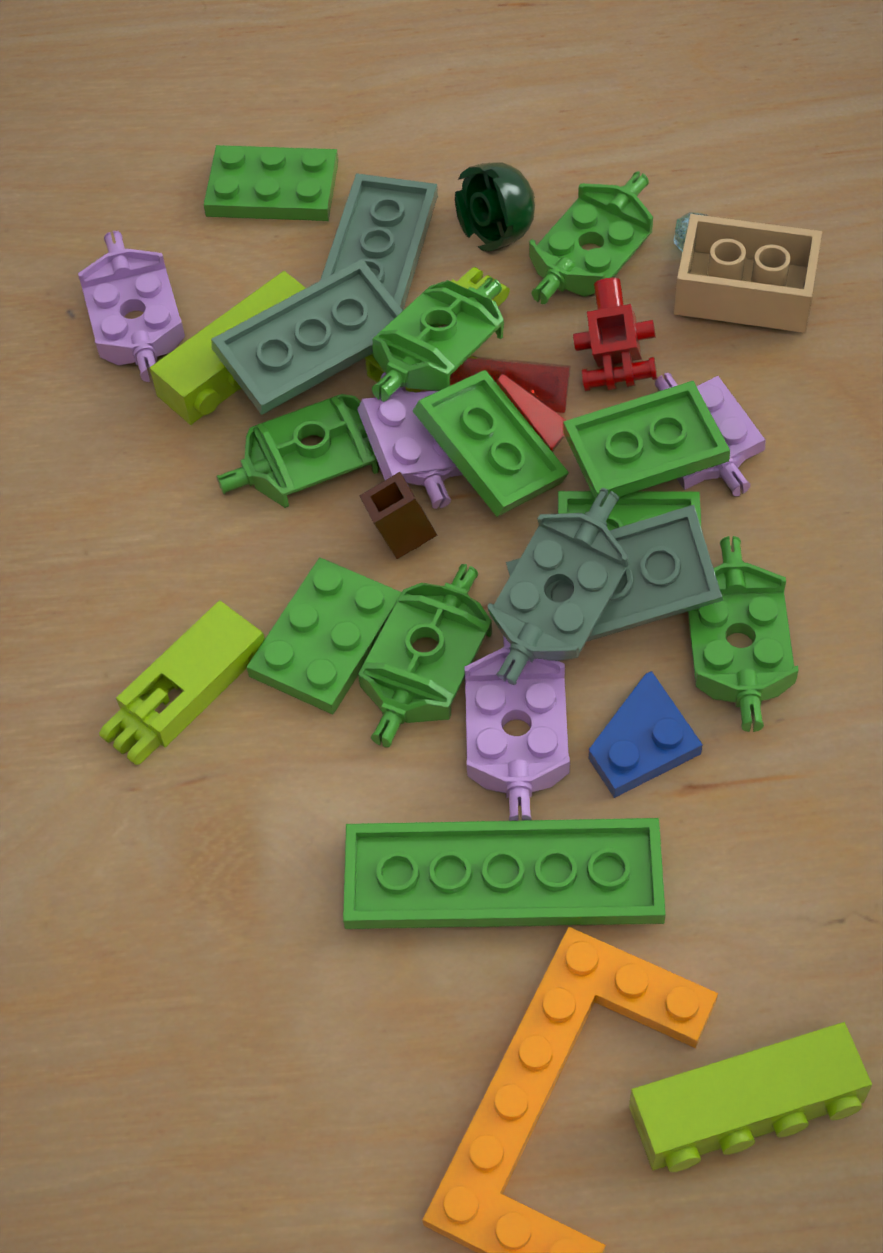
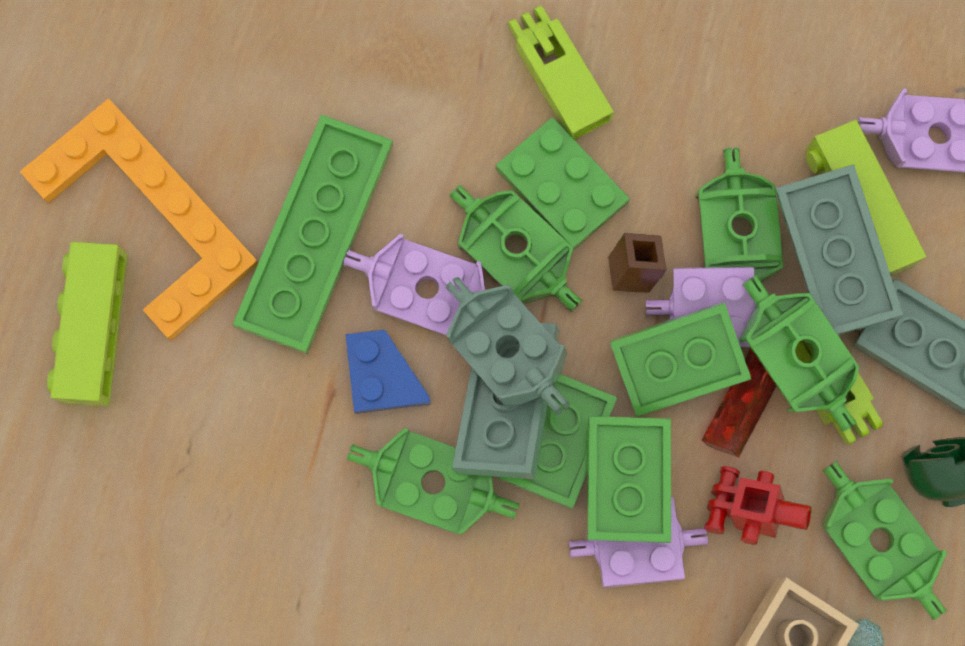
camera: 105 degrees right, 20 degrees up
(541, 418) = (690, 412): piece -> none

